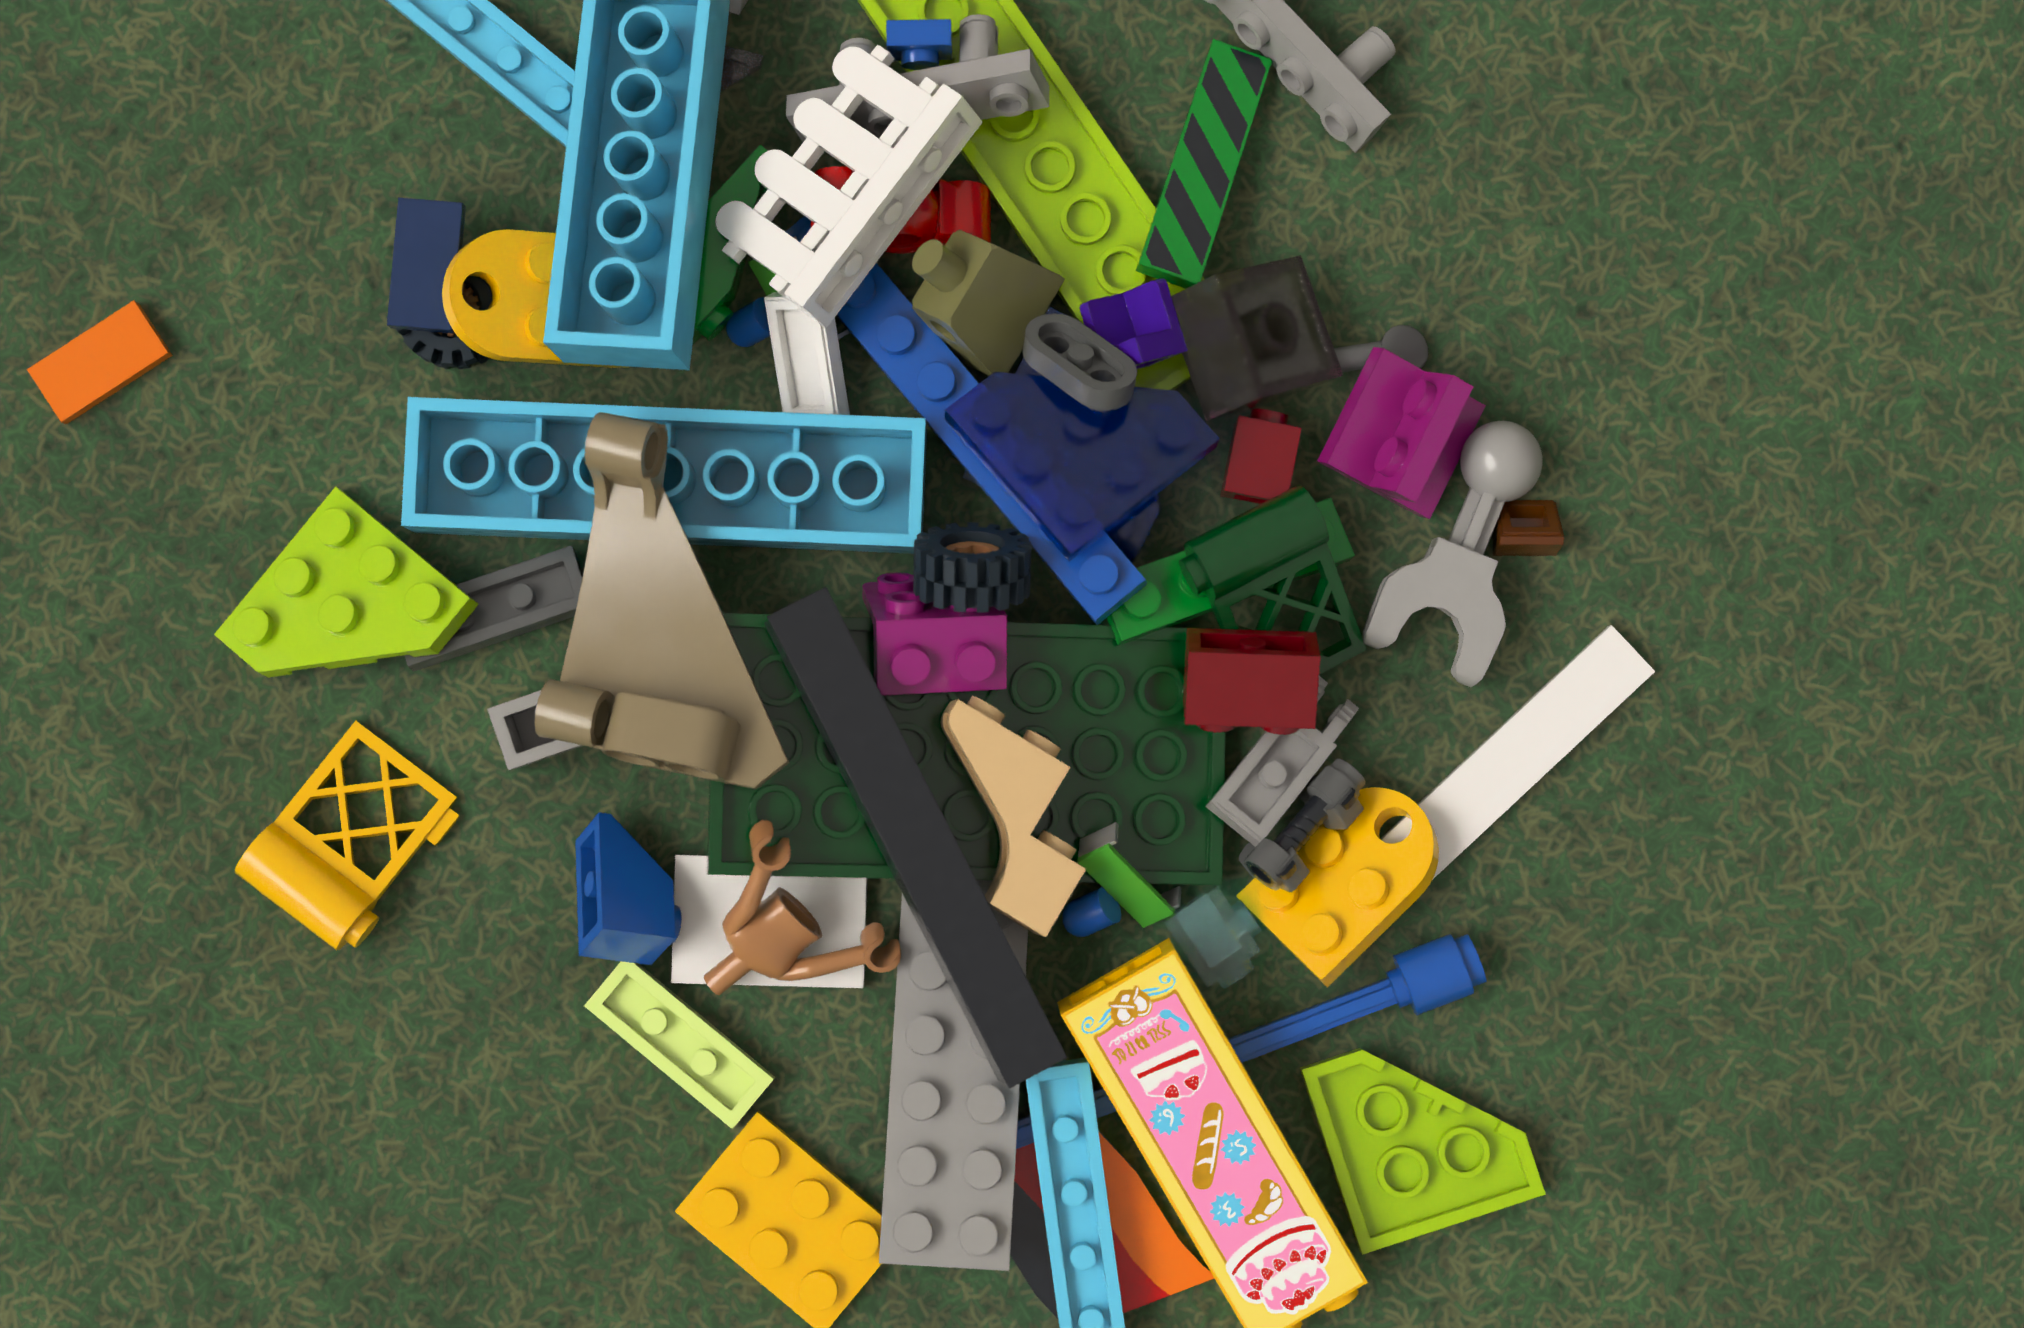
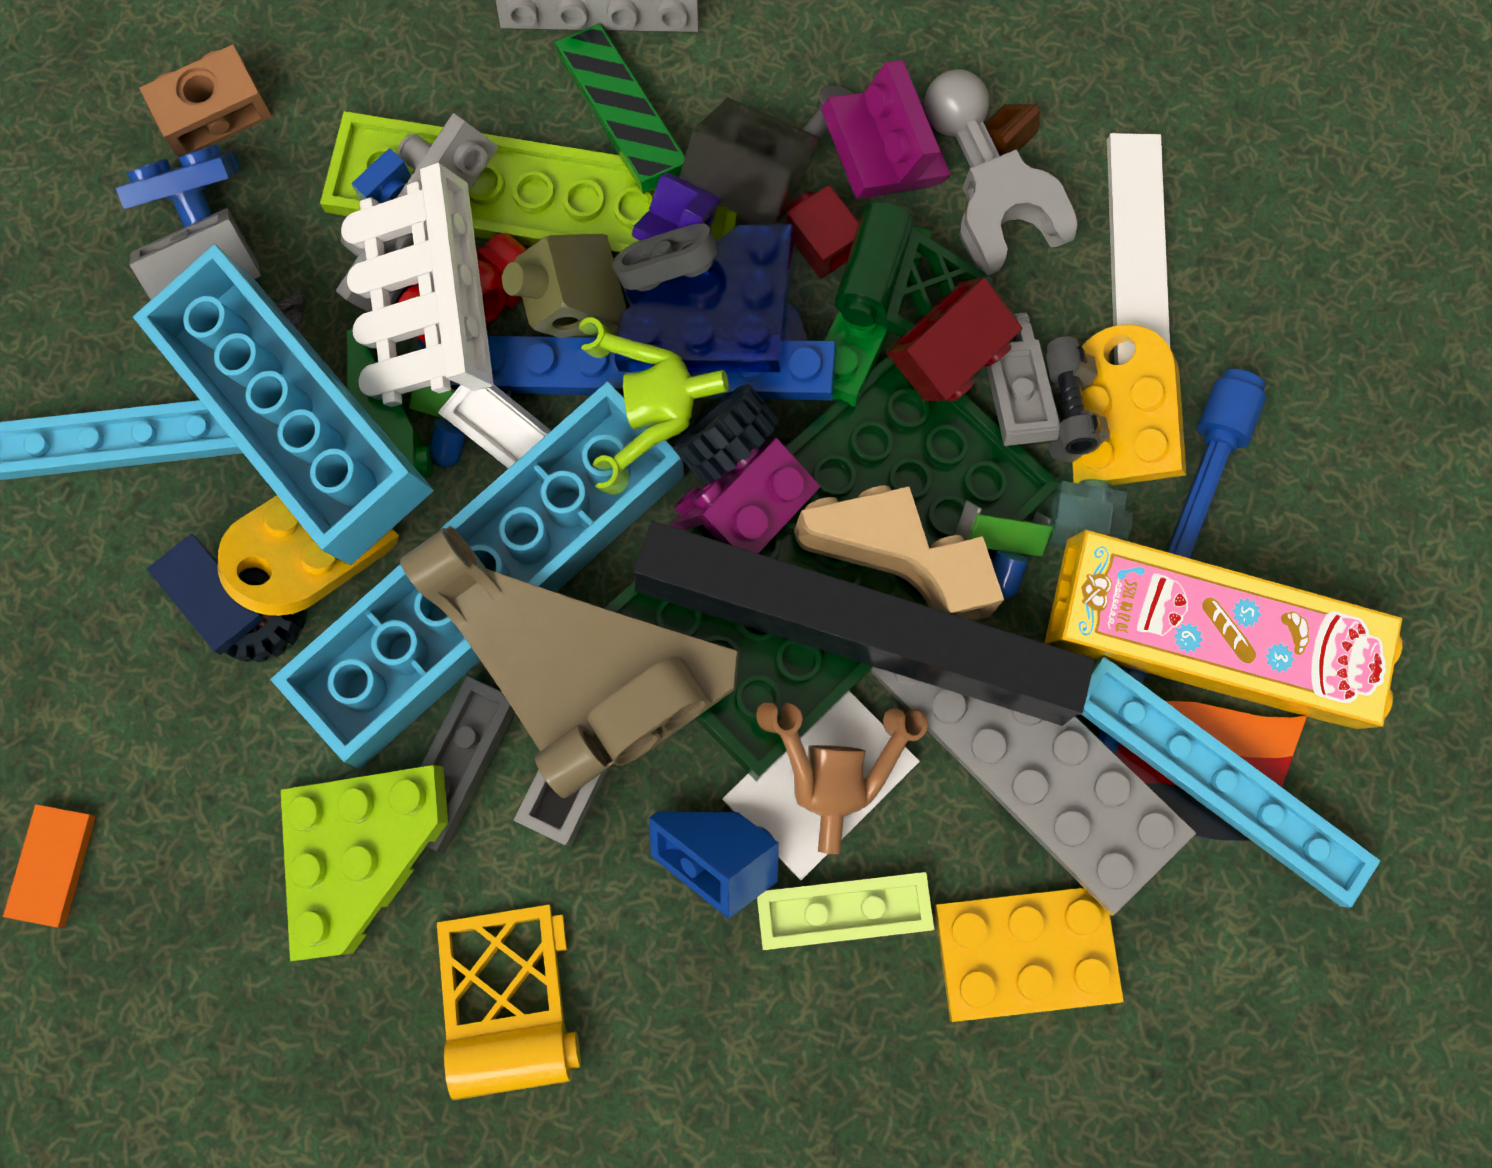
camera: 40 degrees left, 10 degrees down
(940, 475) = (652, 398): none -> lime piece
(1412, 1152) = (1331, 525): lime plate -> none

